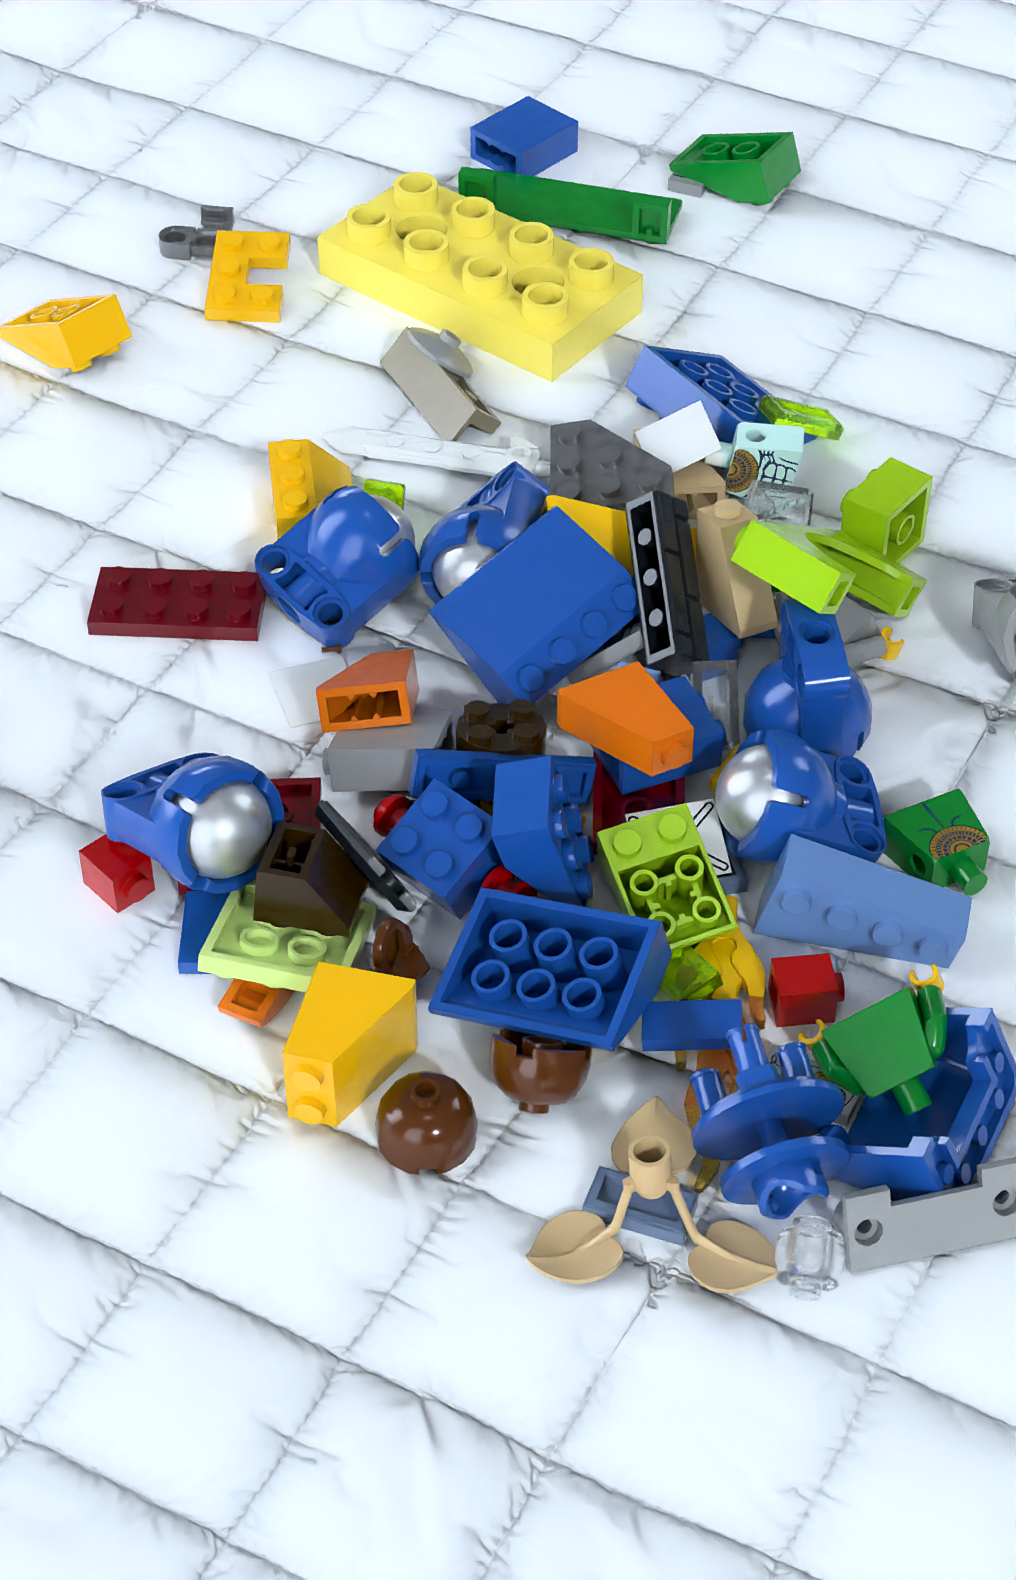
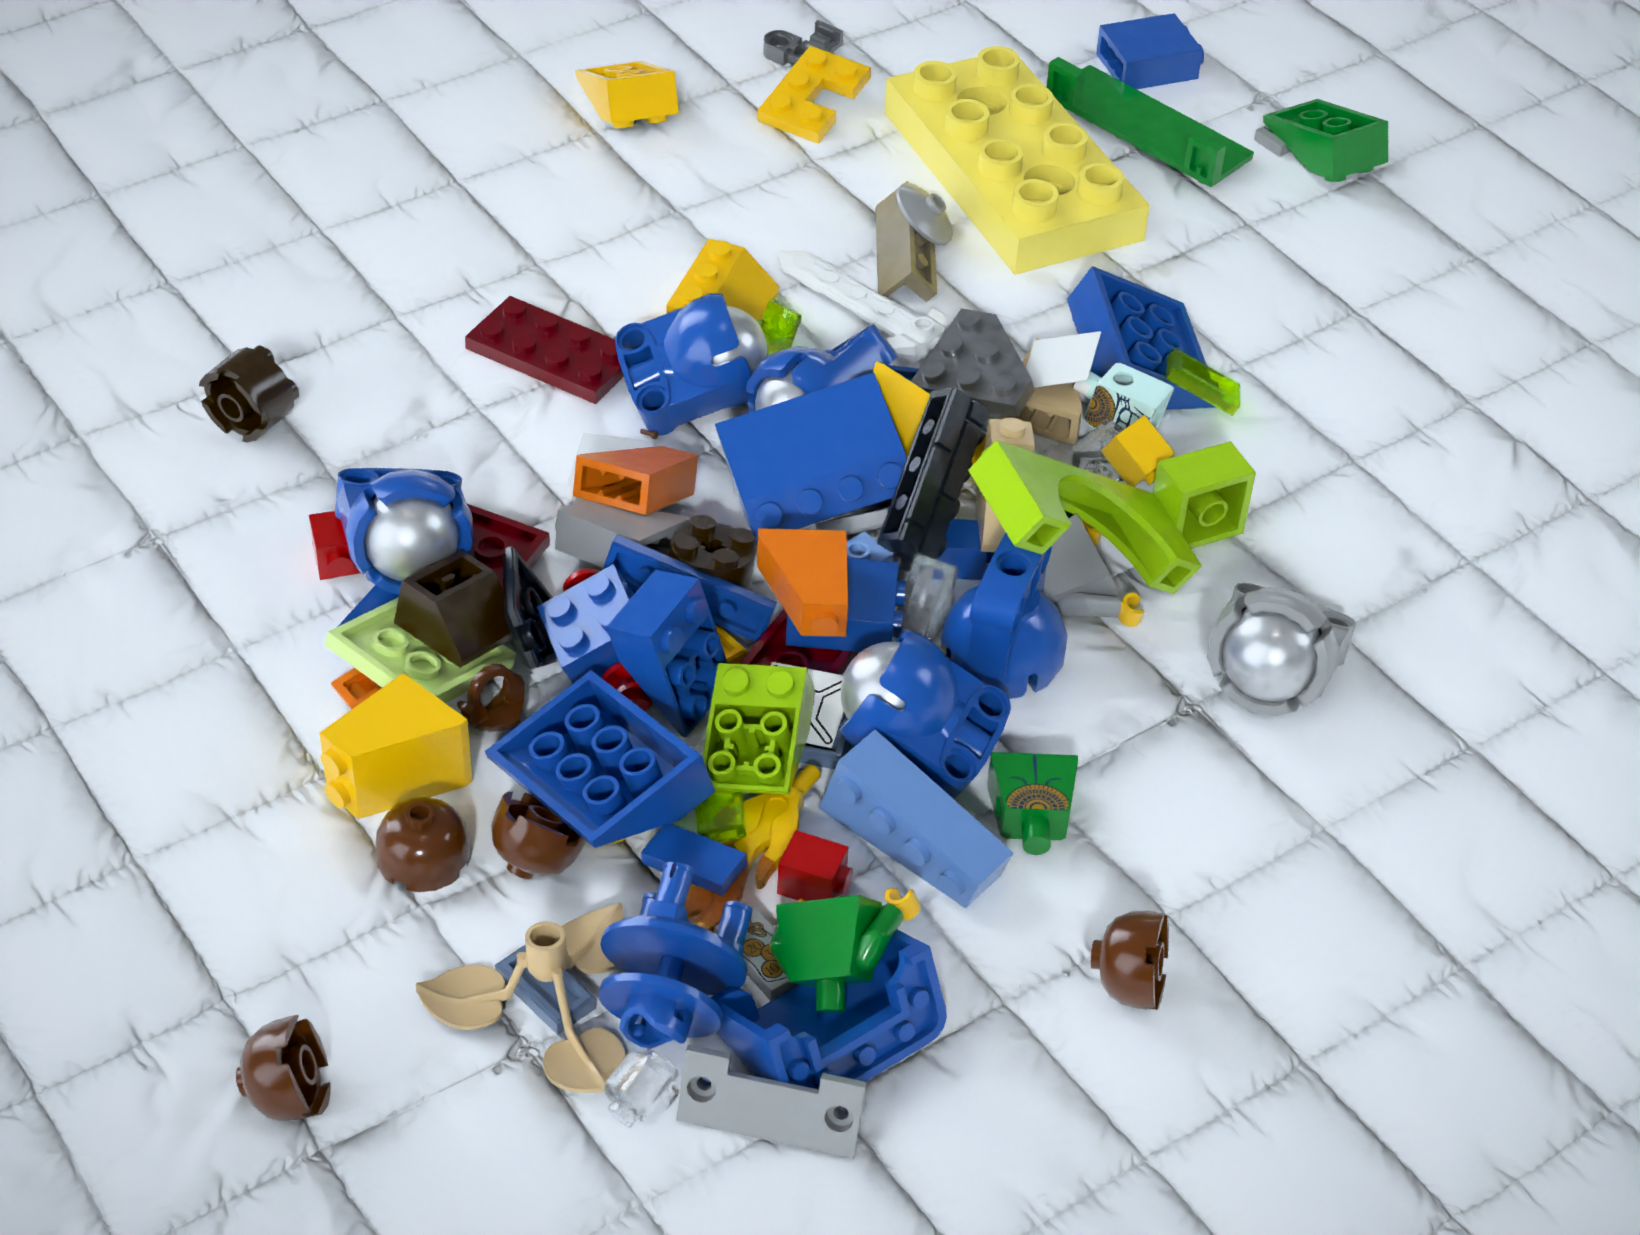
camera: 25 degrees right, 0 degrees up
(470, 1399) = (283, 1072): none -> reddish brown cylinder
(809, 497) = (1137, 452): none -> yellow brick

